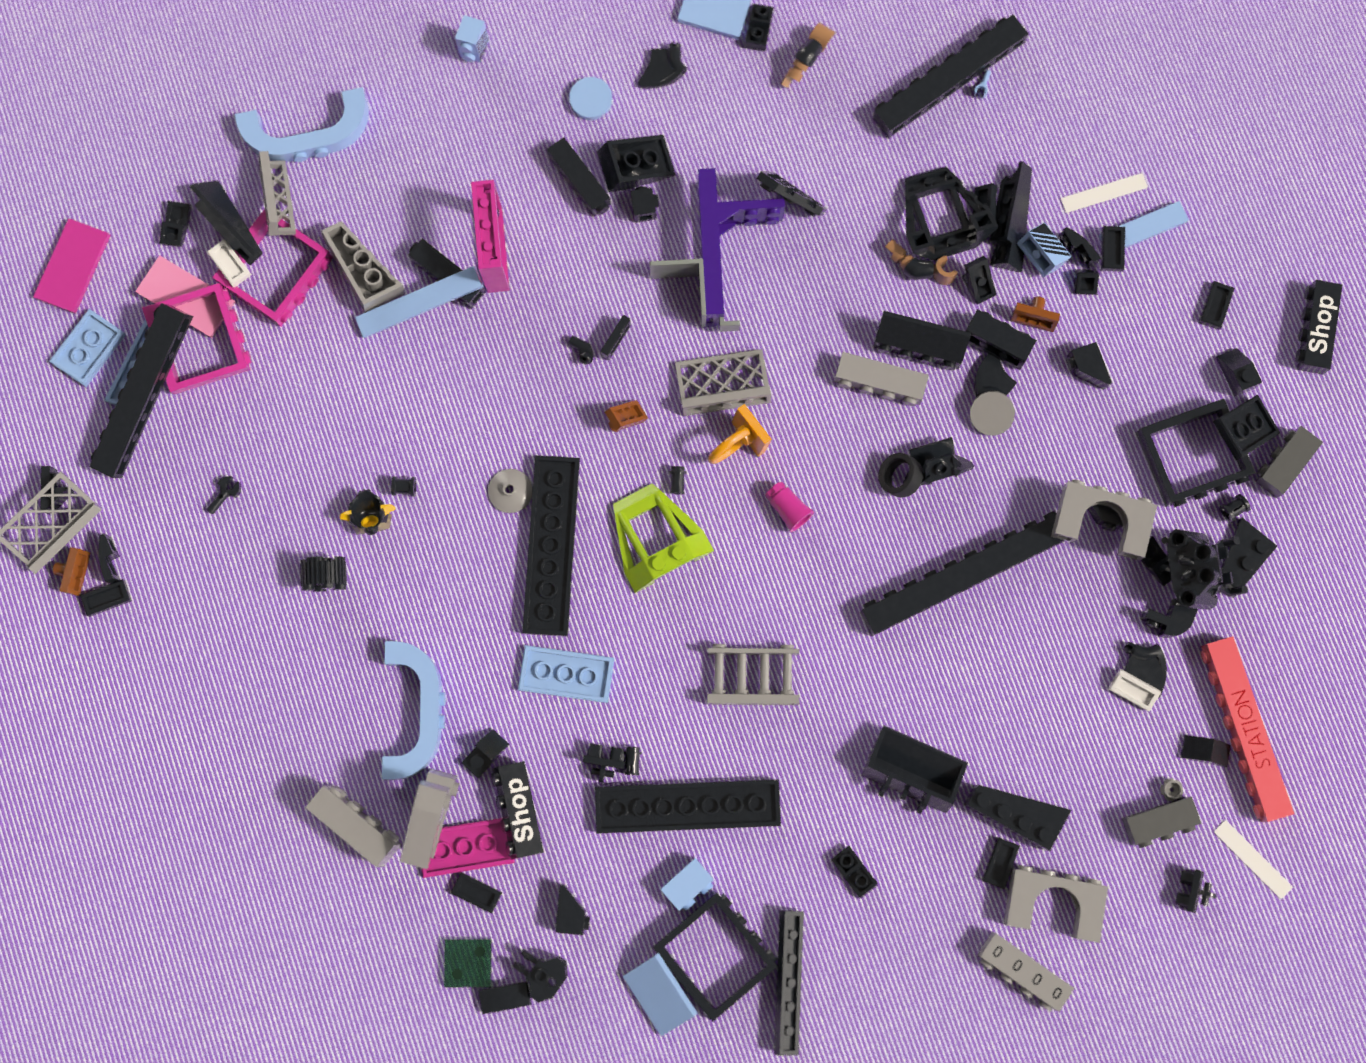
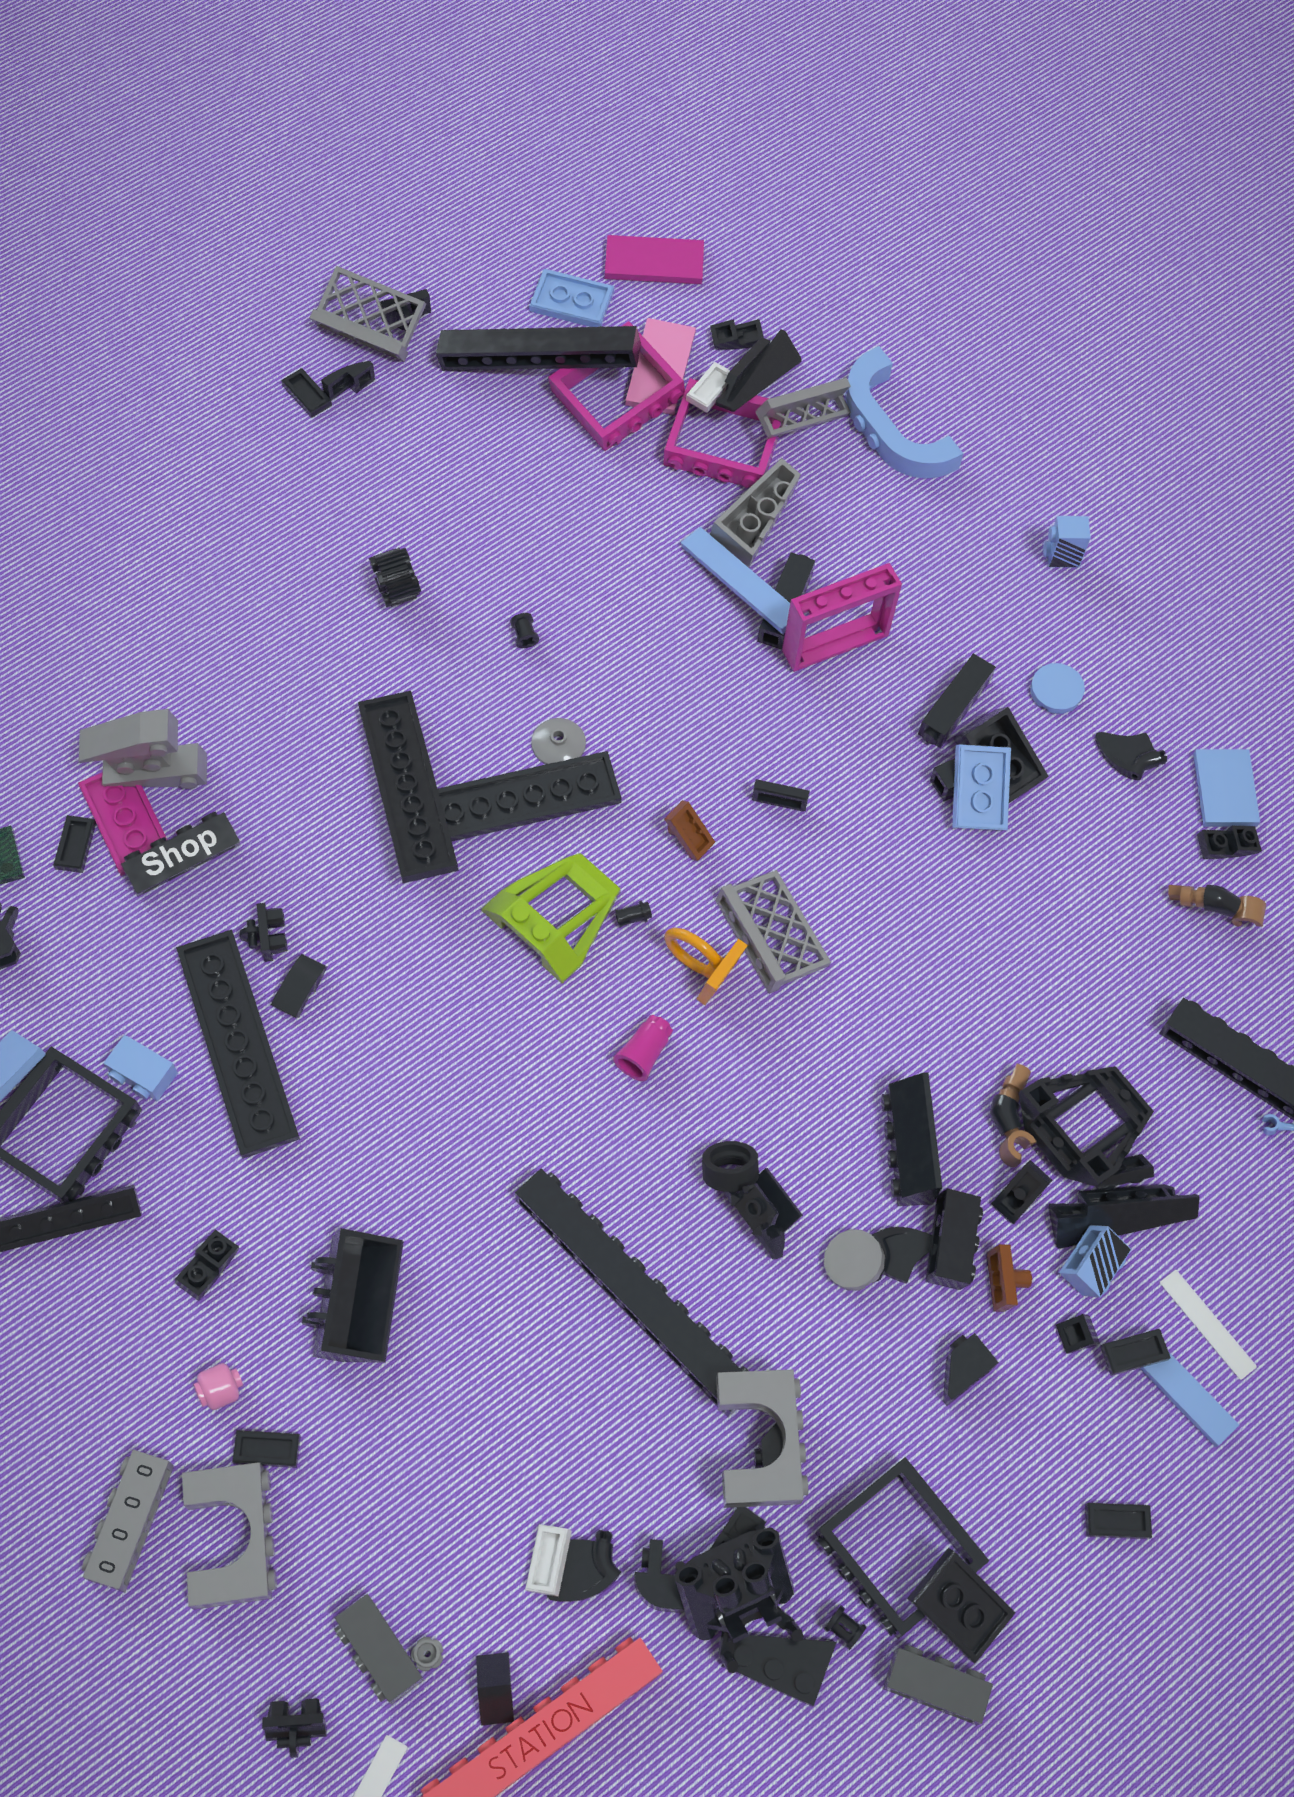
camera: 65 degrees right, 15 degrees down
(72, 571) = (324, 353): dark orange tile -> none
(224, 493) = (458, 465): black bar -> none
(353, 825) = (119, 680): light grey brick -> none
(368, 513) = (479, 602): black hair -> none
(431, 715) = (273, 731): light blue arch -> none
(485, 753) = (241, 804): black slope -> none
(517, 618) = (407, 787): none -> black plate
(566, 674) = (359, 864): light blue tile -> none
(570, 914) = (74, 947): black slope -> none
(584, 349) = (753, 769): black arm -> none
(632, 759) = (275, 963): black pin -> none
(656, 747) = (298, 984): none -> black slope
(662, 187) = (981, 787): none -> light blue tile
(716, 220) = (952, 854): dark purple piece -> none
(741, 695) = (399, 1088): light grey fence -> none
(773, 182) = (1036, 926): black plate -> none
(881, 378) = (846, 1110): light grey brick -> none
(949, 885) = (218, 1386): none -> bright pink head
(1025, 817) = (333, 1456): black wedge -> none
(1075, 242) = (1121, 1302): black slope -> none
(1238, 371) = (1036, 1576): black slope -> none
(1319, 327) = (1146, 1674): black brick -> none

